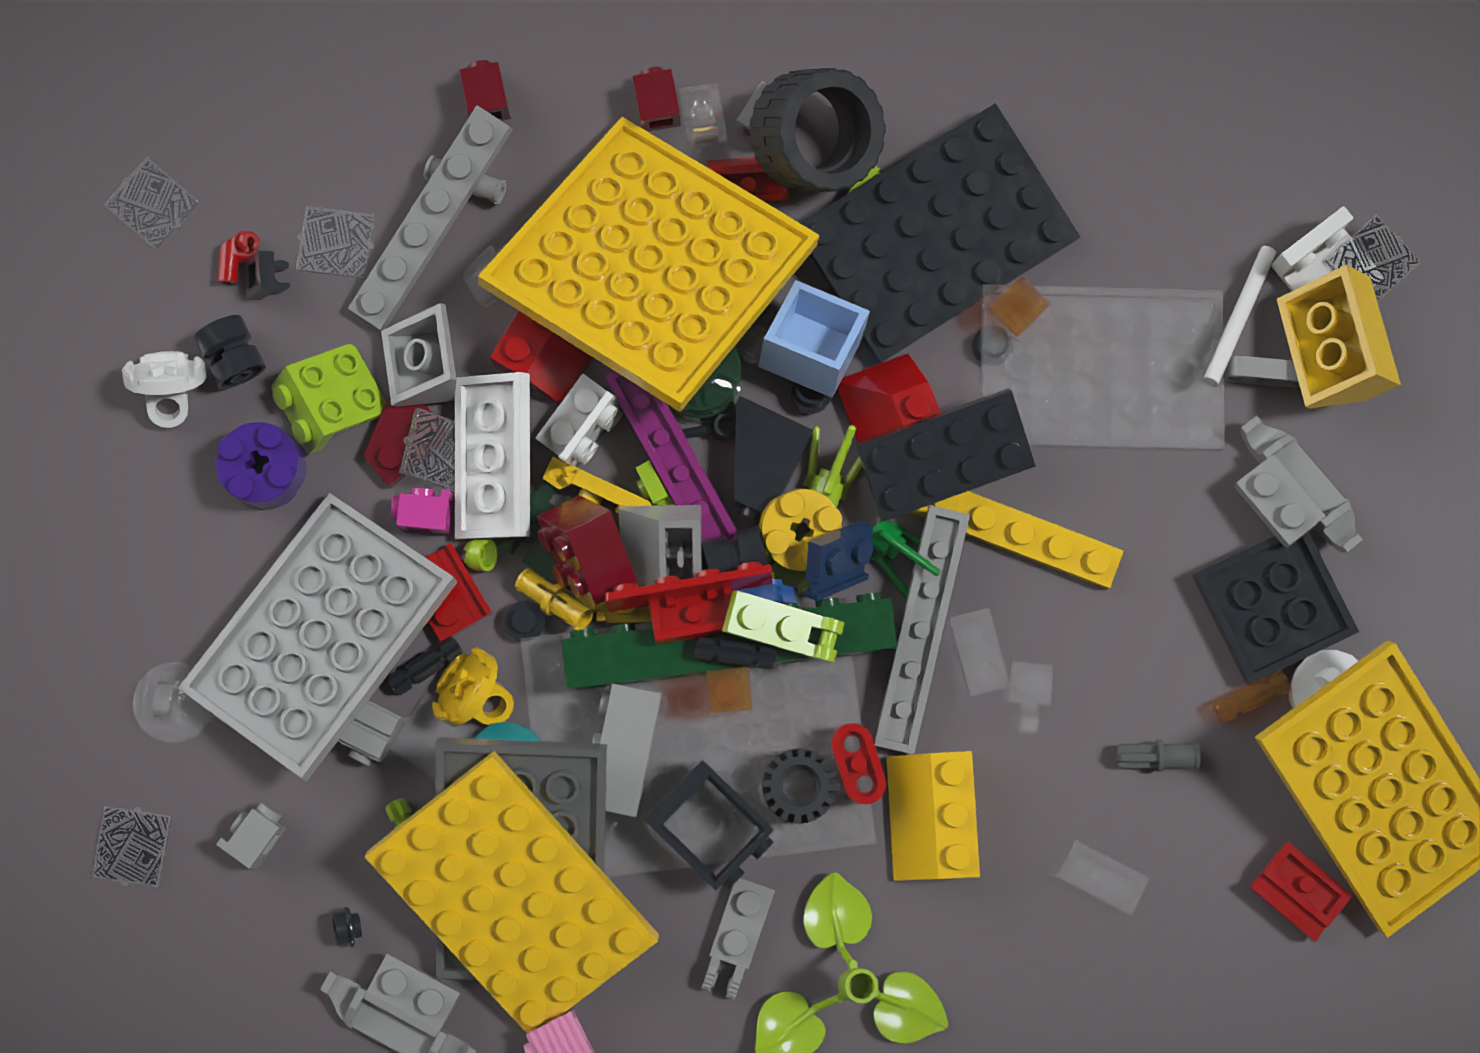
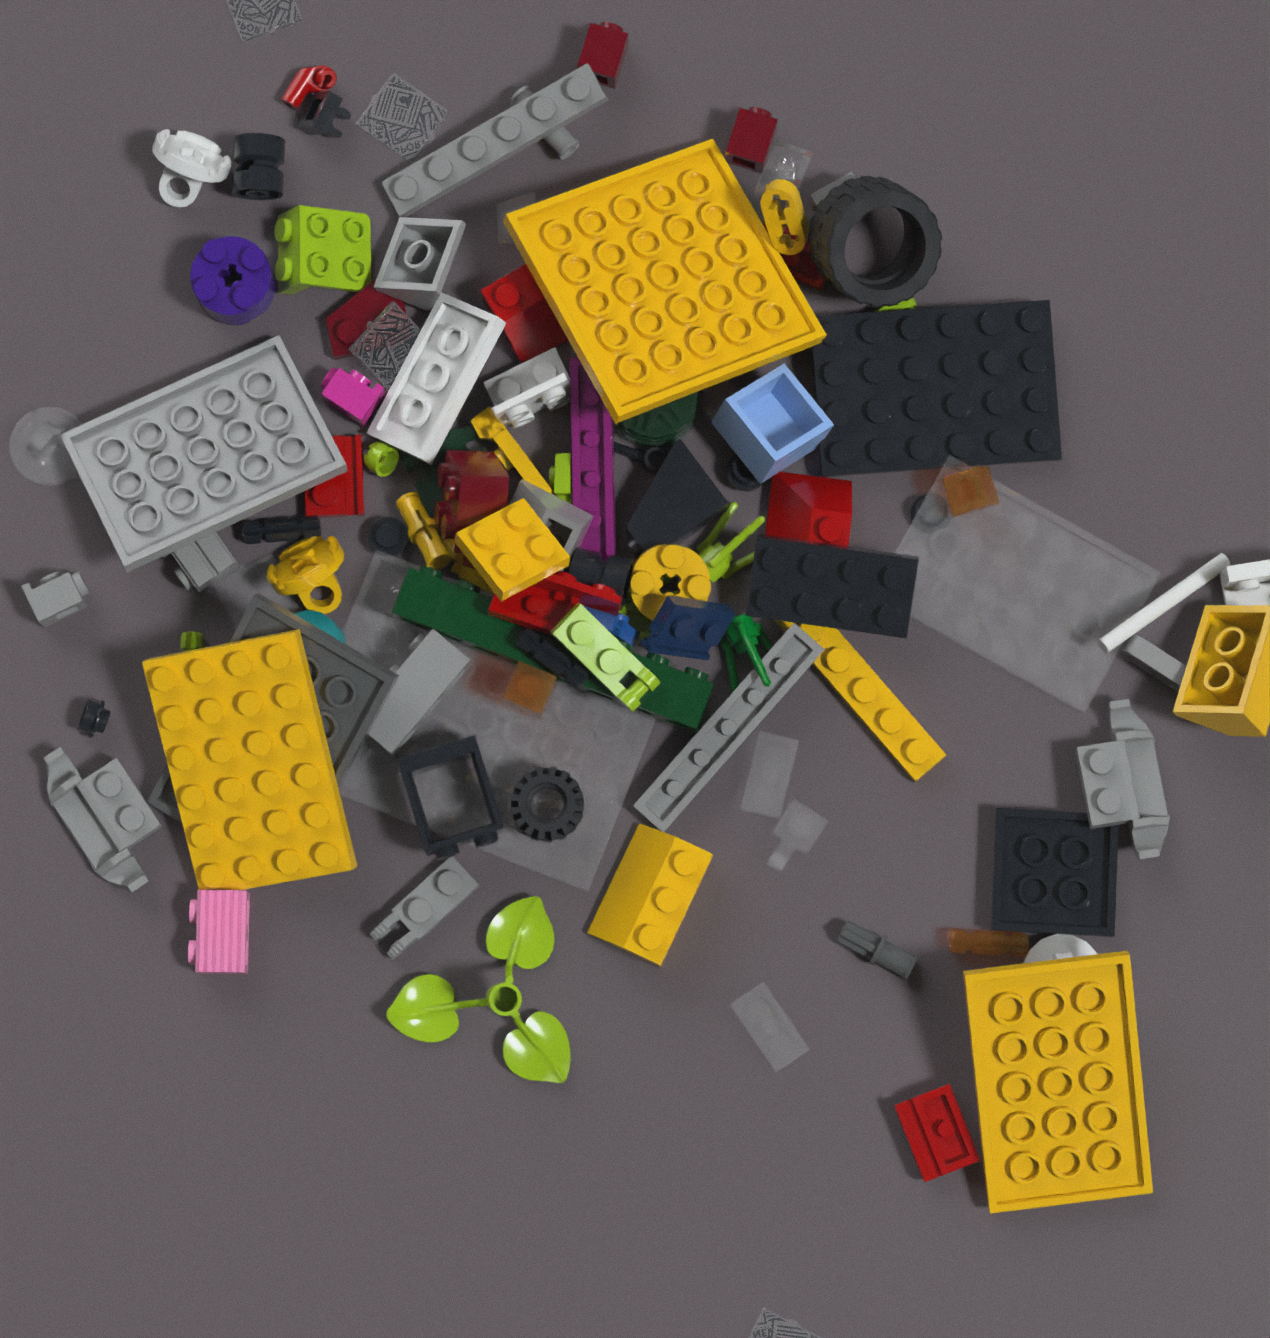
camera: 30 degrees right, 0 degrees up
(648, 574) = (512, 549): none -> yellow plate
(720, 155) = (792, 215): none -> yellow beam
(859, 763) = (608, 813): red plate -> none

